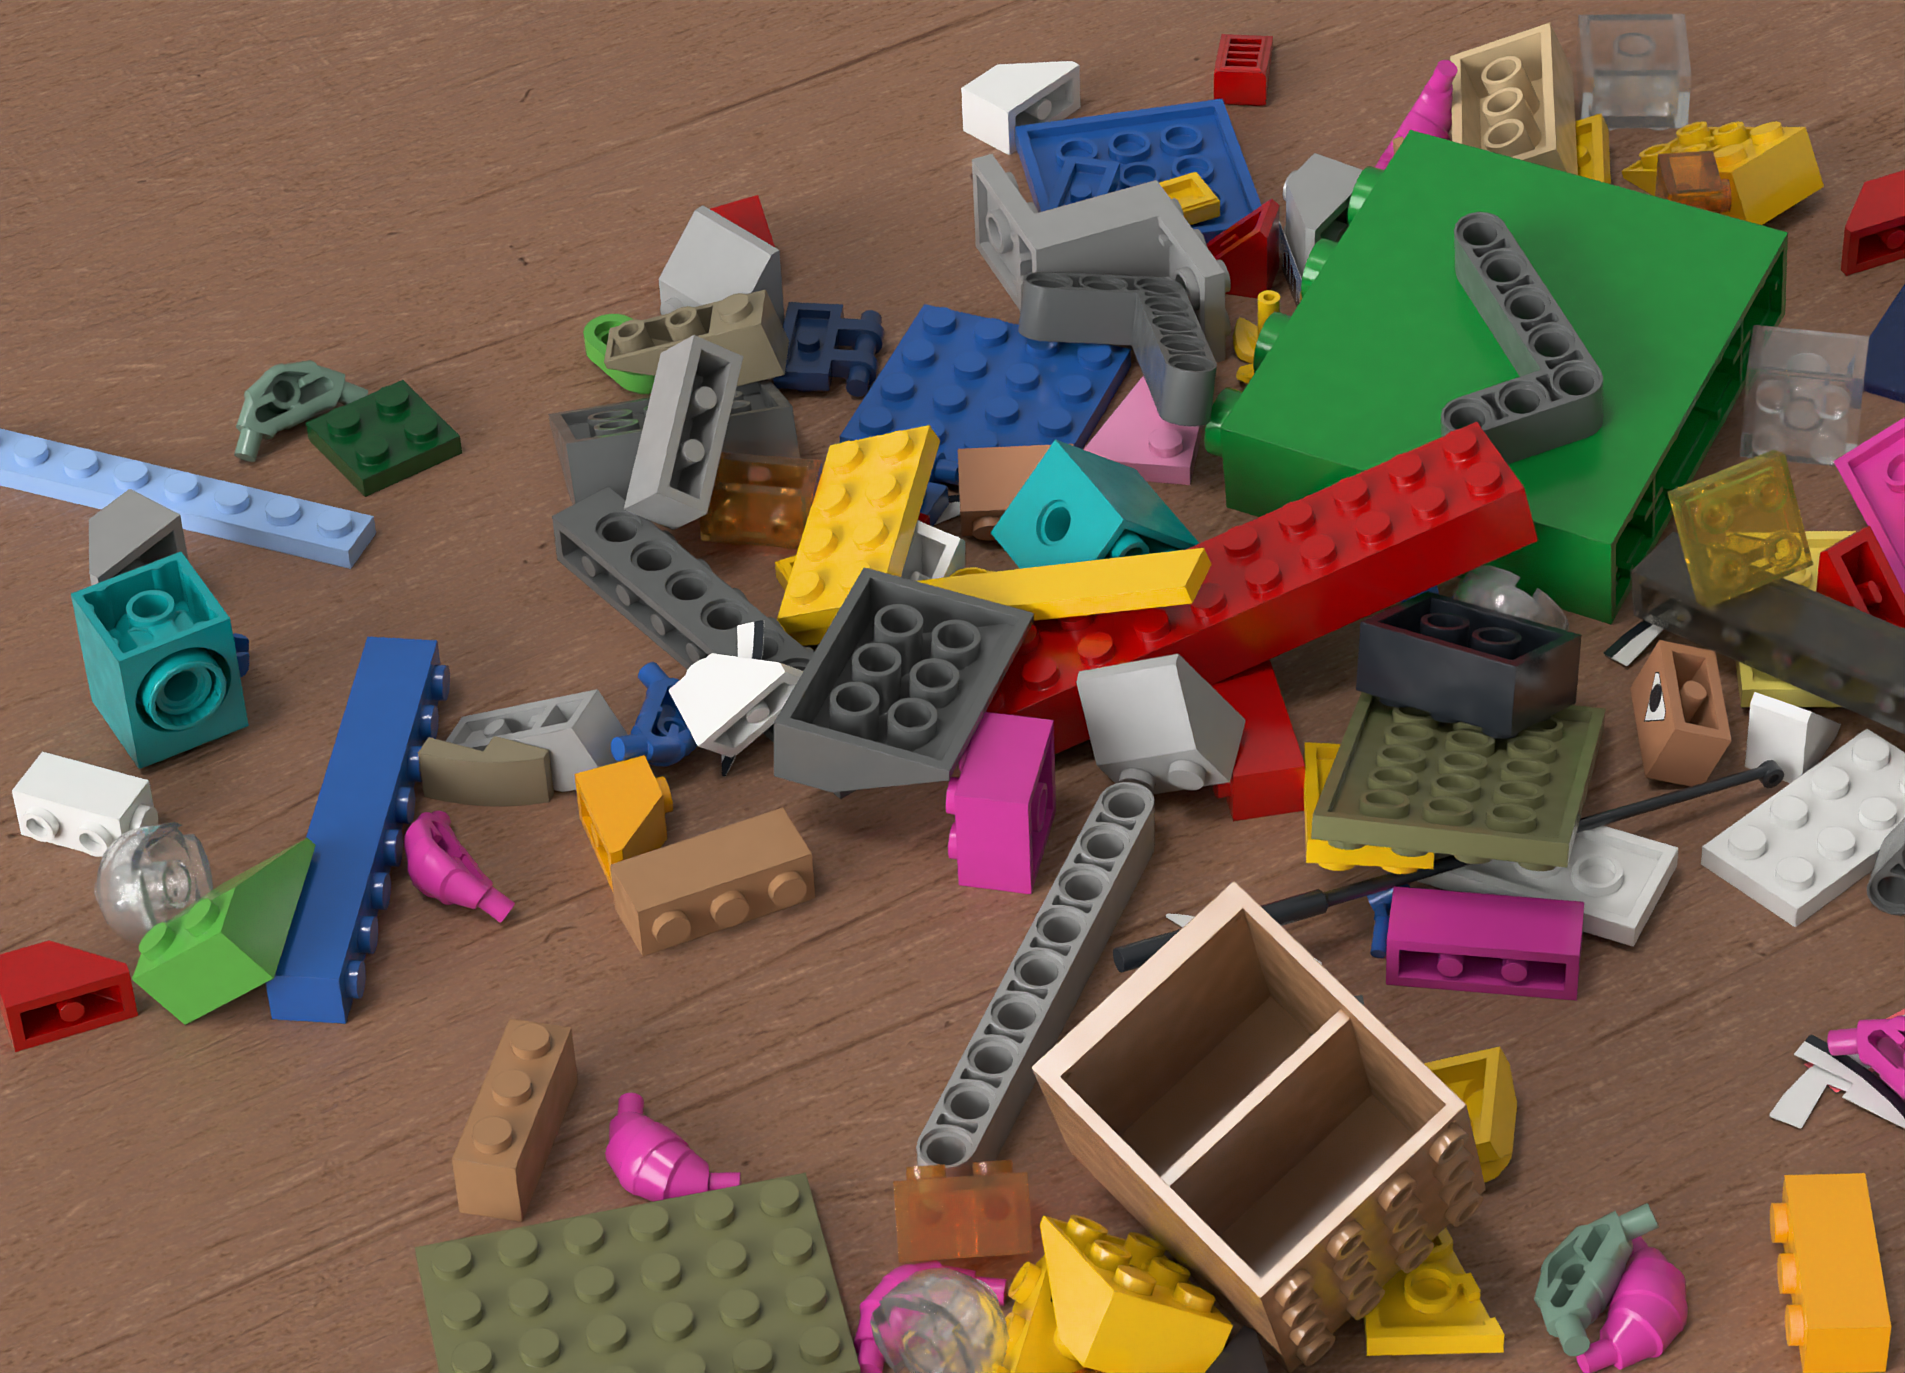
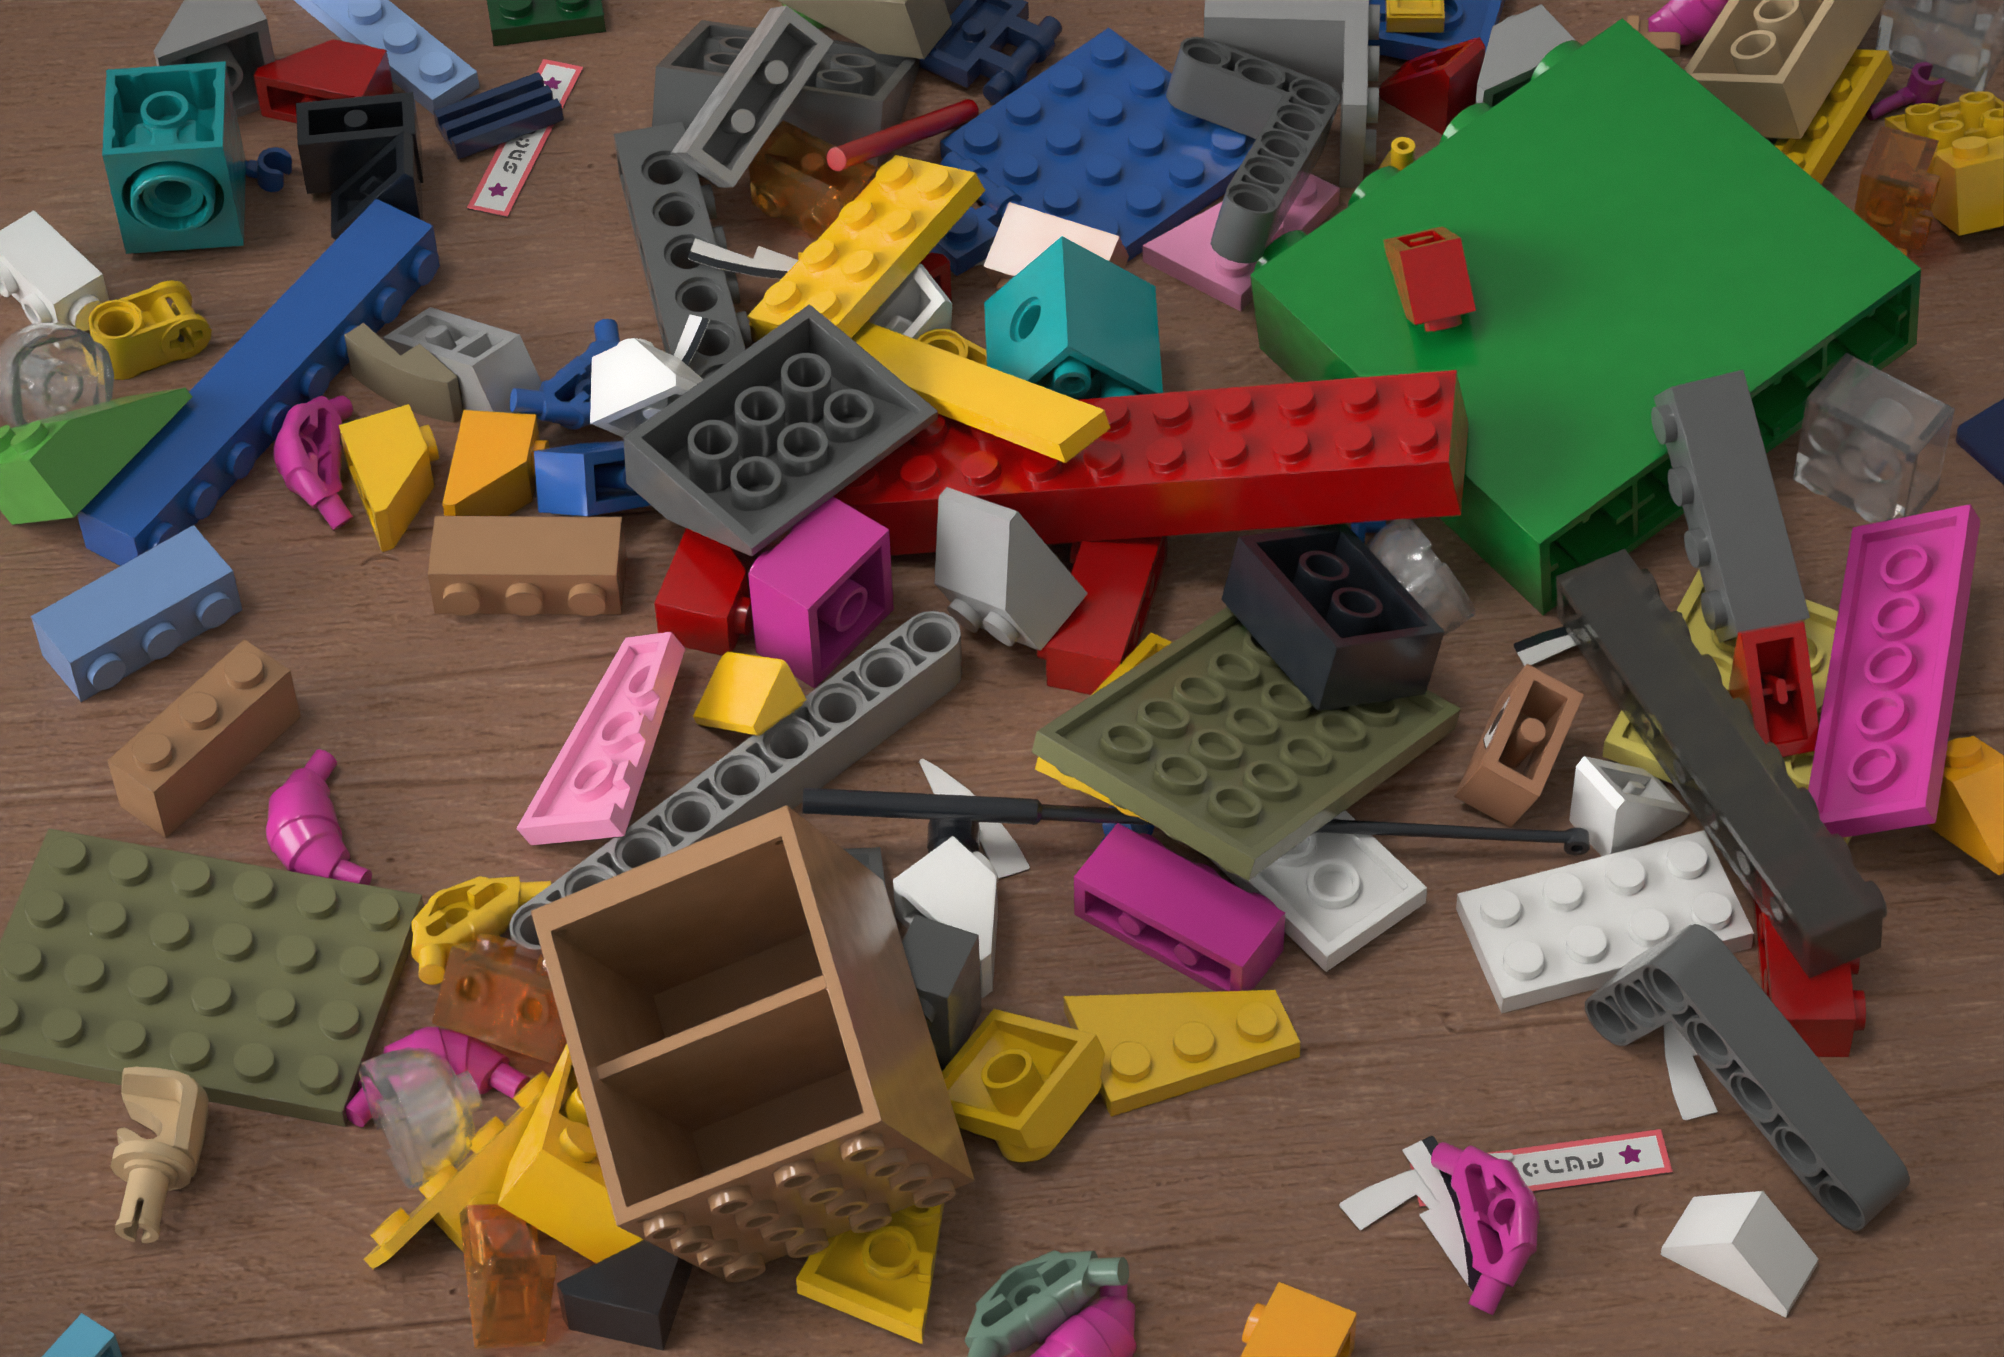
camera: 25 degrees right, 10 degrees up
(220, 812) = (145, 330): none -> yellow piece
(251, 567) = (319, 74): none -> red slope
(314, 601) = (346, 133): none -> black brick
(365, 612) = (388, 176): none -> black slope
(373, 1046) = (137, 613): none -> medium blue brick
(415, 546) = (498, 115): none -> dark blue tile
(449, 559) = (516, 157): none -> sticker
(524, 851) = (390, 469): none -> yellow slope
(730, 789) = (584, 480): none -> blue slope
(759, 574) = (764, 264): none -> white sticker
(817, 433) = (901, 135): none -> red bar
(864, 1168) = (462, 914): none -> yellow piece
(893, 848) = (704, 596): none -> red slope
(896, 996) = (609, 749): none -> bright pink wing
(995, 904) = (748, 694): none -> yellow slope
(1390, 368) = (1431, 277): none -> red slope
(1556, 1038) = (1181, 1040): none -> yellow wing
(1559, 381) = (1572, 371): dark grey beam -> none
(1633, 142) = (1917, 91): none -> magenta hand
(1724, 423) = (1728, 505): none -> dark grey brick
(1740, 528) = (1658, 580): clear yellow plate -> none

